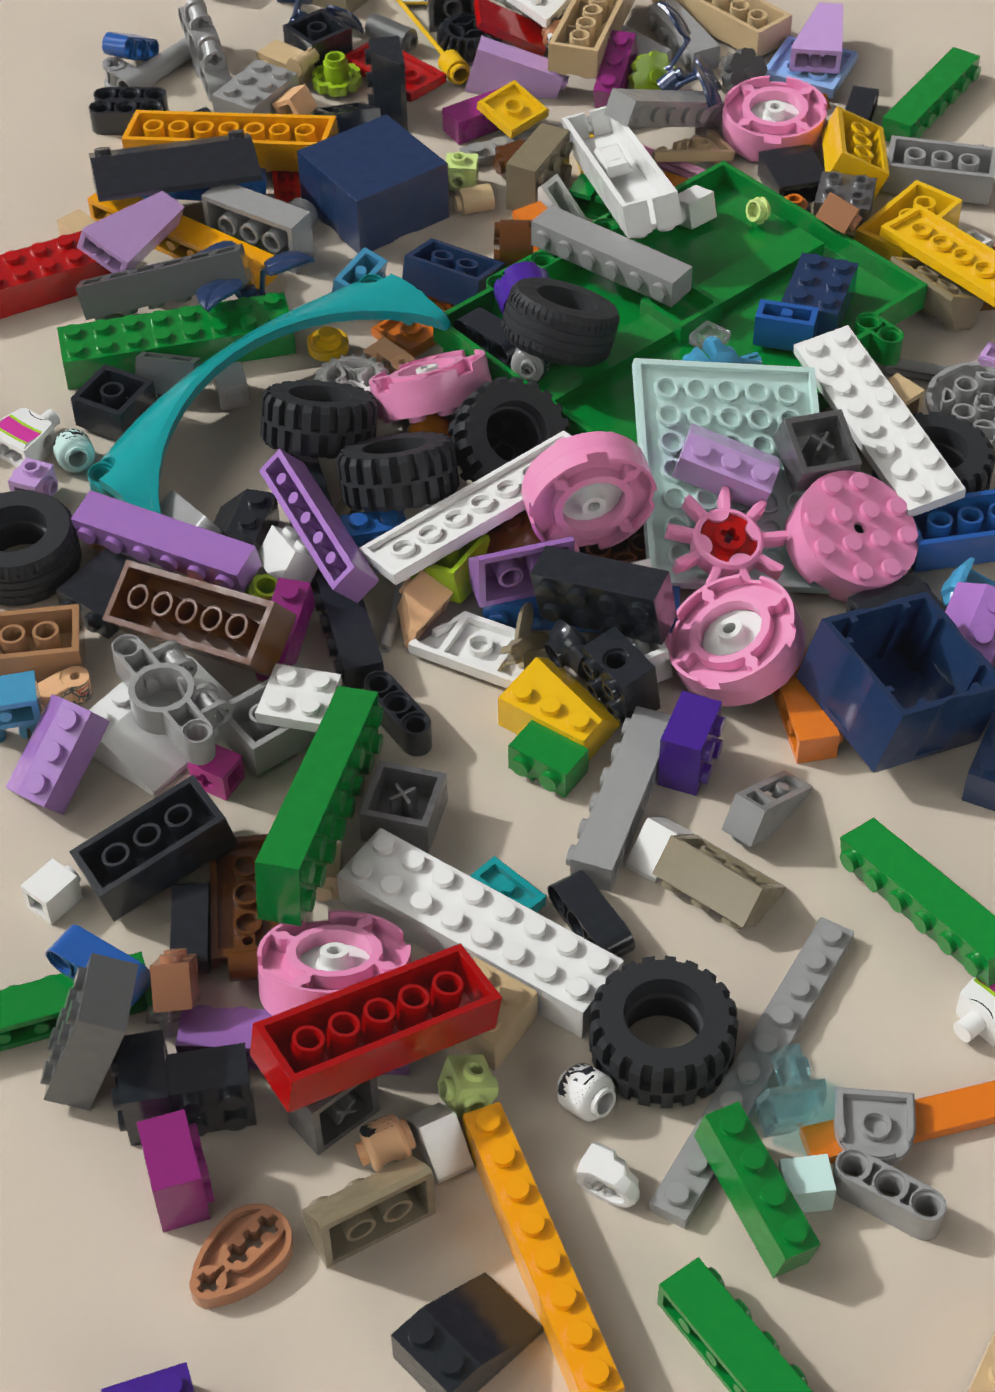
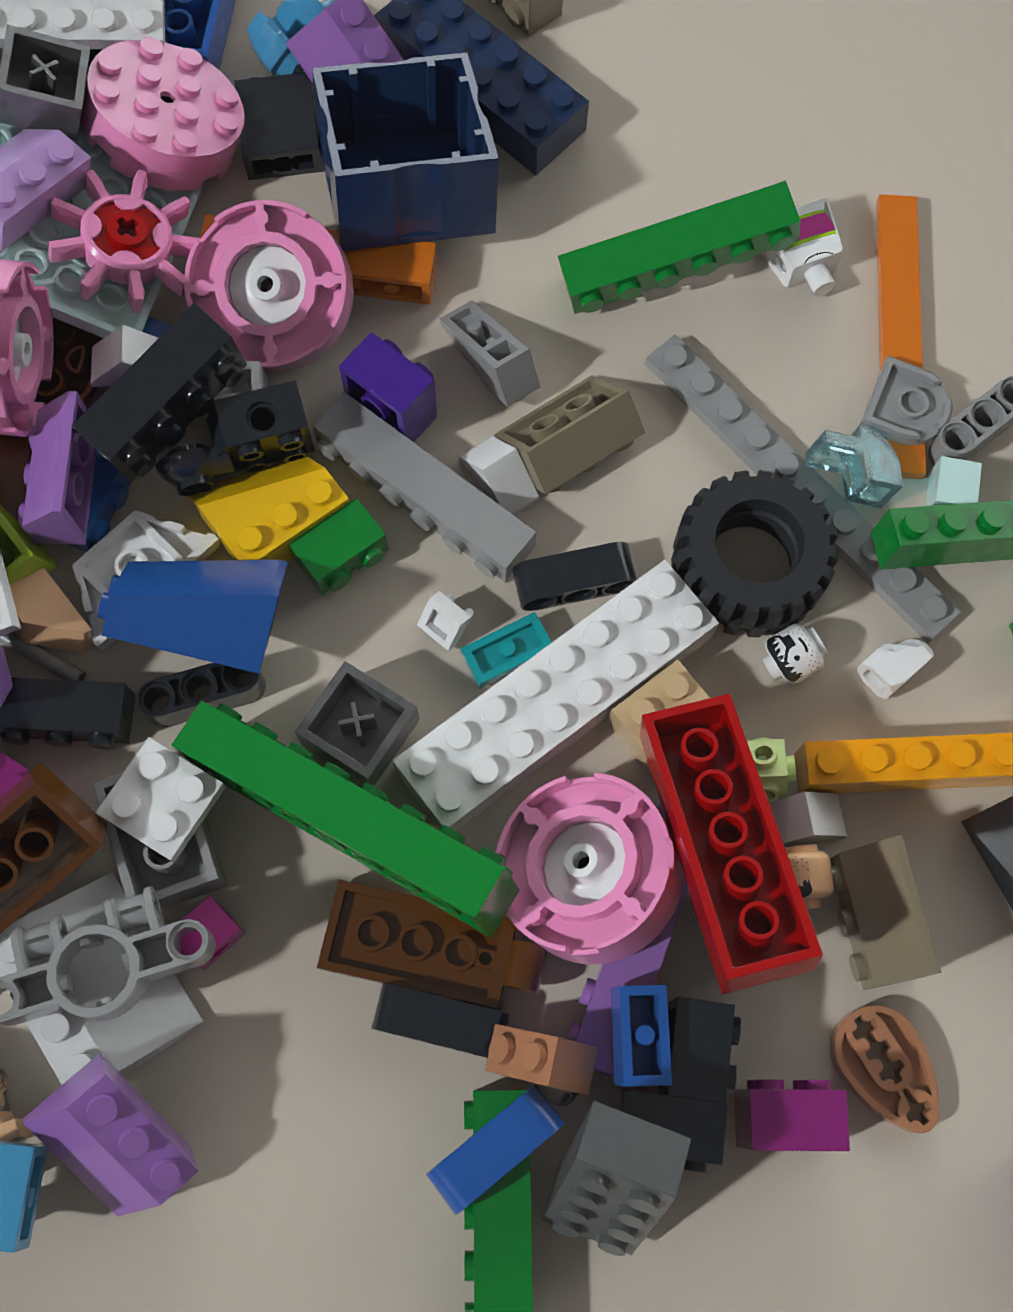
camera: 75 degrees left, 25 degrees up
(52, 891) = (323, 1184): white brick -> none
(153, 847) = (321, 1043): black brick -> none
(208, 1023) = (640, 1035): none -> blue brick
(452, 679) = (196, 608): none -> blue slope
(514, 843) = (444, 619): none -> white tile
(524, 640) = (154, 509): dark tan piece -> none

